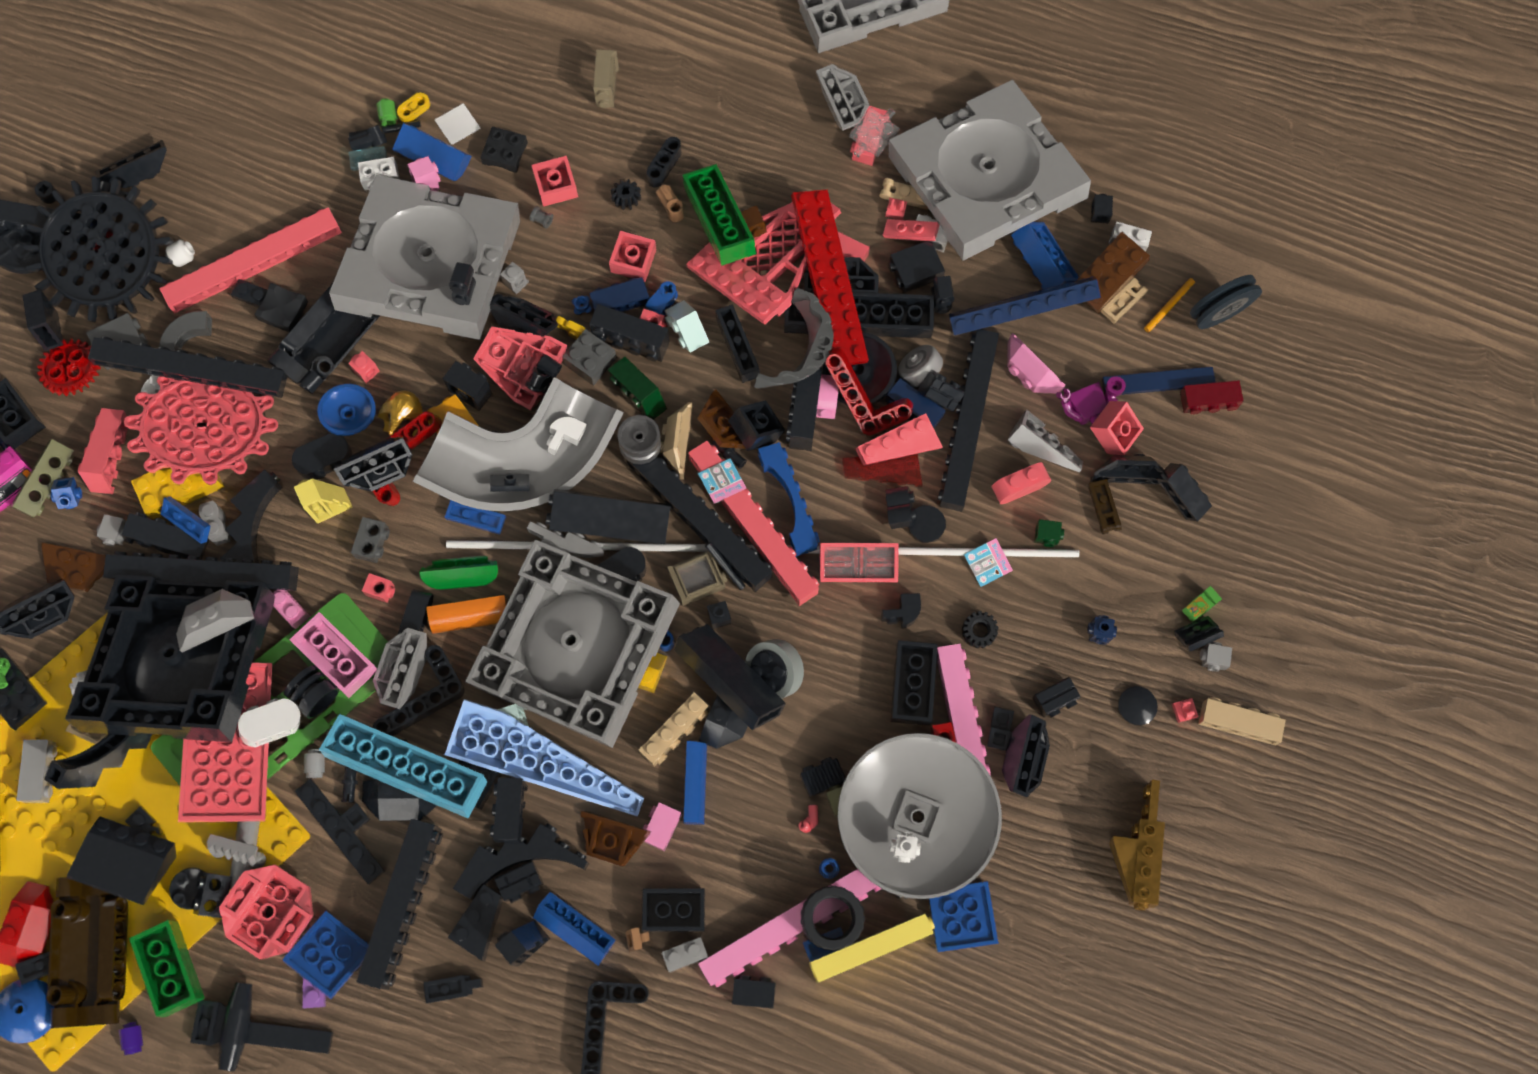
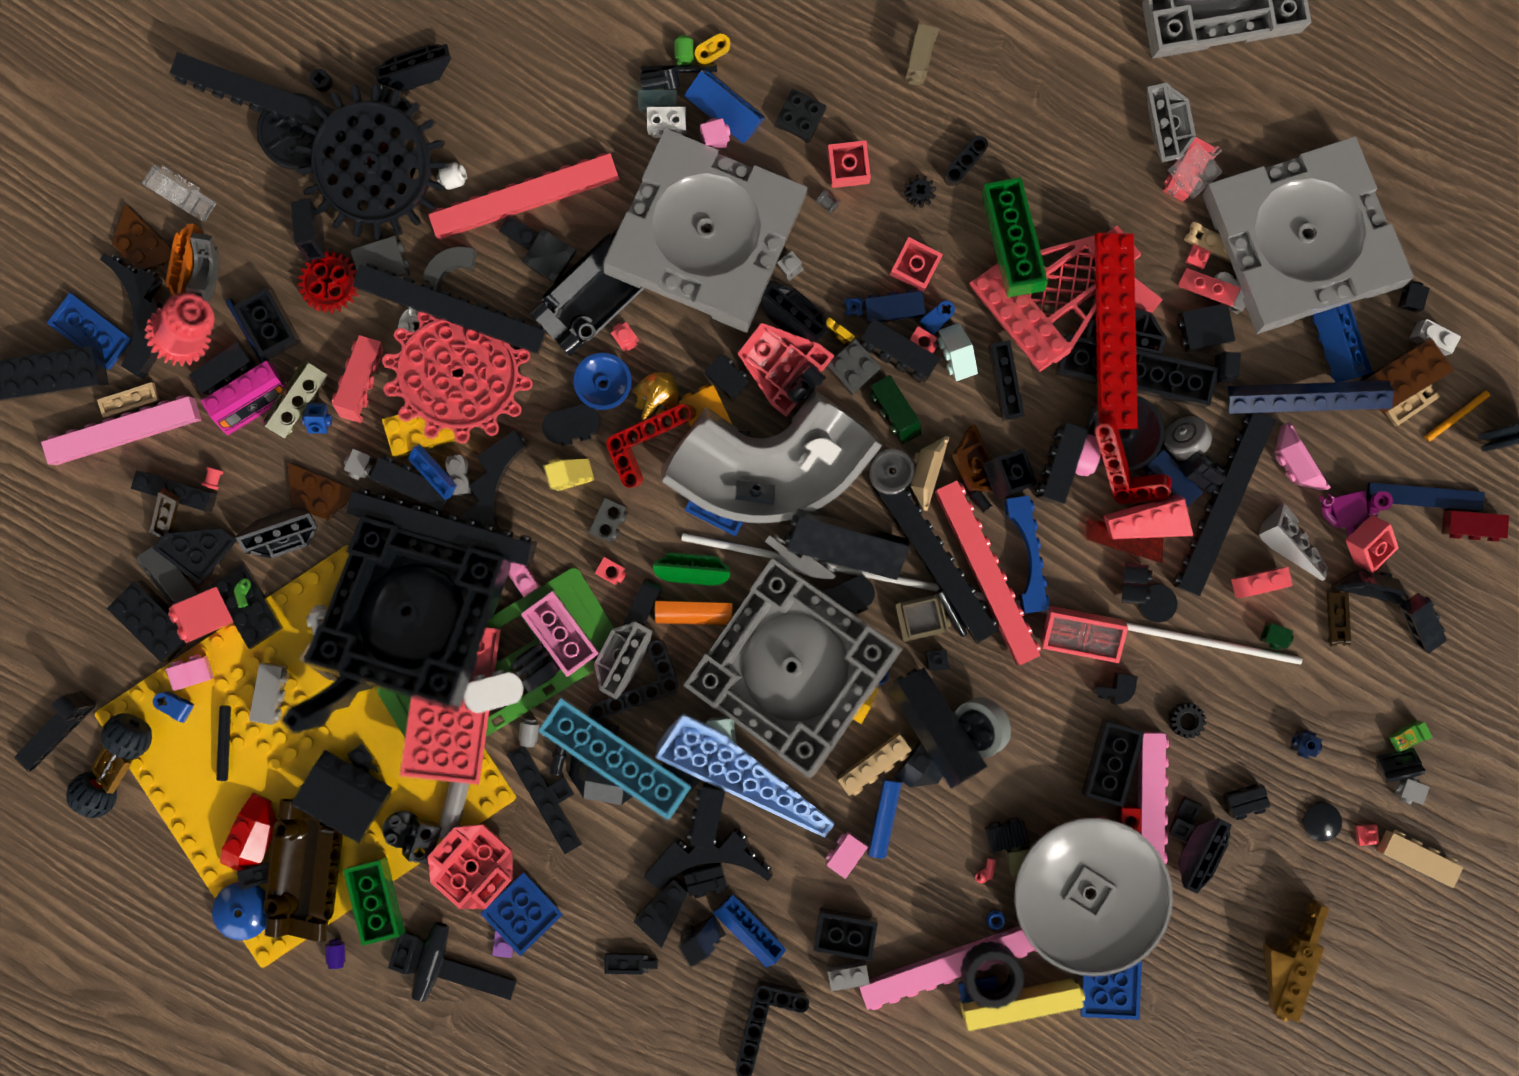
camera: 15 degrees right, 15 degrees up
(212, 617) = (451, 586): light grey wedge -> none
(222, 846) = (433, 799): light grey gear -> none
(376, 465) = (626, 450): black wedge -> none
(399, 905) = (591, 886): black brick -> none
(457, 124) = (755, 75): white sticker -> none
(462, 283) = (741, 281): black brick -> none
(611, 839) = (797, 857): reddish brown wing -> none
(635, 939) = (804, 952): medium nougat tile -> none
(670, 203) = (964, 208): medium nougat piece -> none
(722, 480) = (965, 526): sticker -> none
(753, 993) = (905, 1020): black brick -> none
(754, 221) = (1050, 253): reddish brown brick -> none
(819, 344) = (1091, 406): dark grey windscreen -> none
(898, 851) = (1072, 922): white brick -> none
(988, 562) = (1210, 654): sticker -> none

